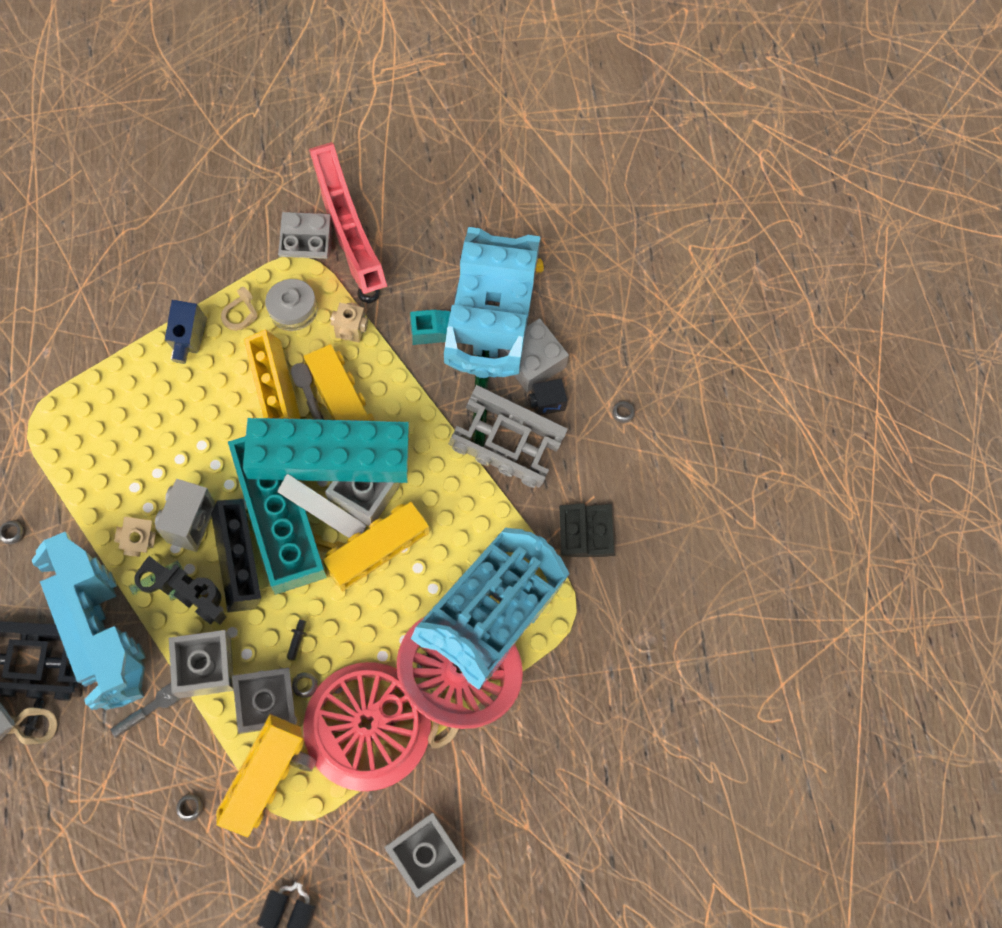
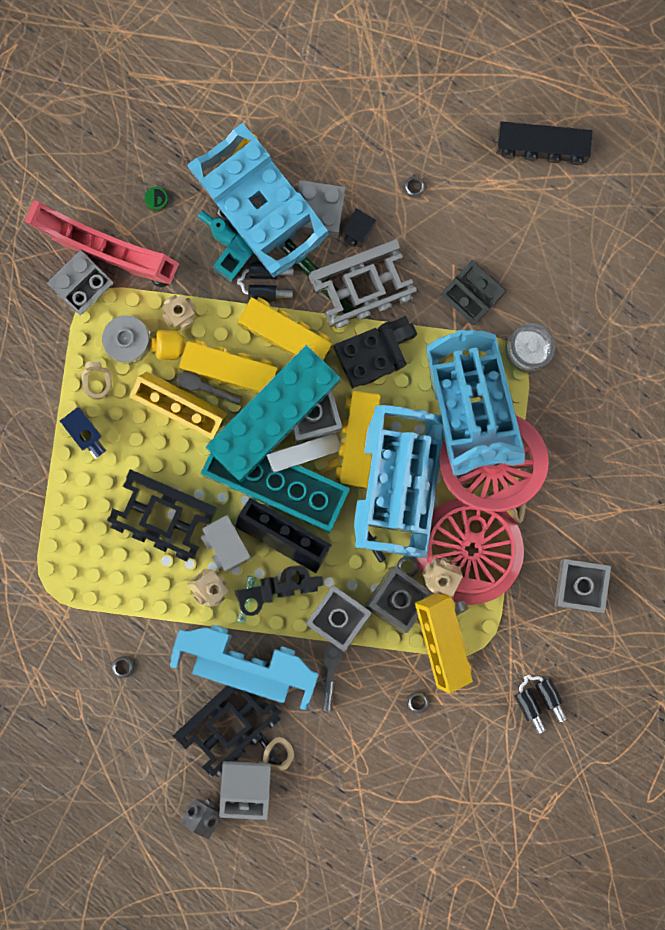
camera: 45 degrees left, 15 degrees up
(187, 442) = (169, 500): none -> black fence
(314, 715) = (442, 576): none -> tan brick
(315, 334) = (167, 344): none -> yellow head
(380, 580) = (400, 481): none -> medium azure piece
(408, 406) = (281, 331): none -> yellow brick
(425, 240) = (156, 198): none -> green tile
(429, 374) = (266, 292): none -> black piece
(445, 294) = (218, 228): none -> teal piece
(457, 494) = (374, 352): none -> black plate
(588, 615) = (530, 347): none -> clear piece
(759, 475) = (544, 142): none -> black brick

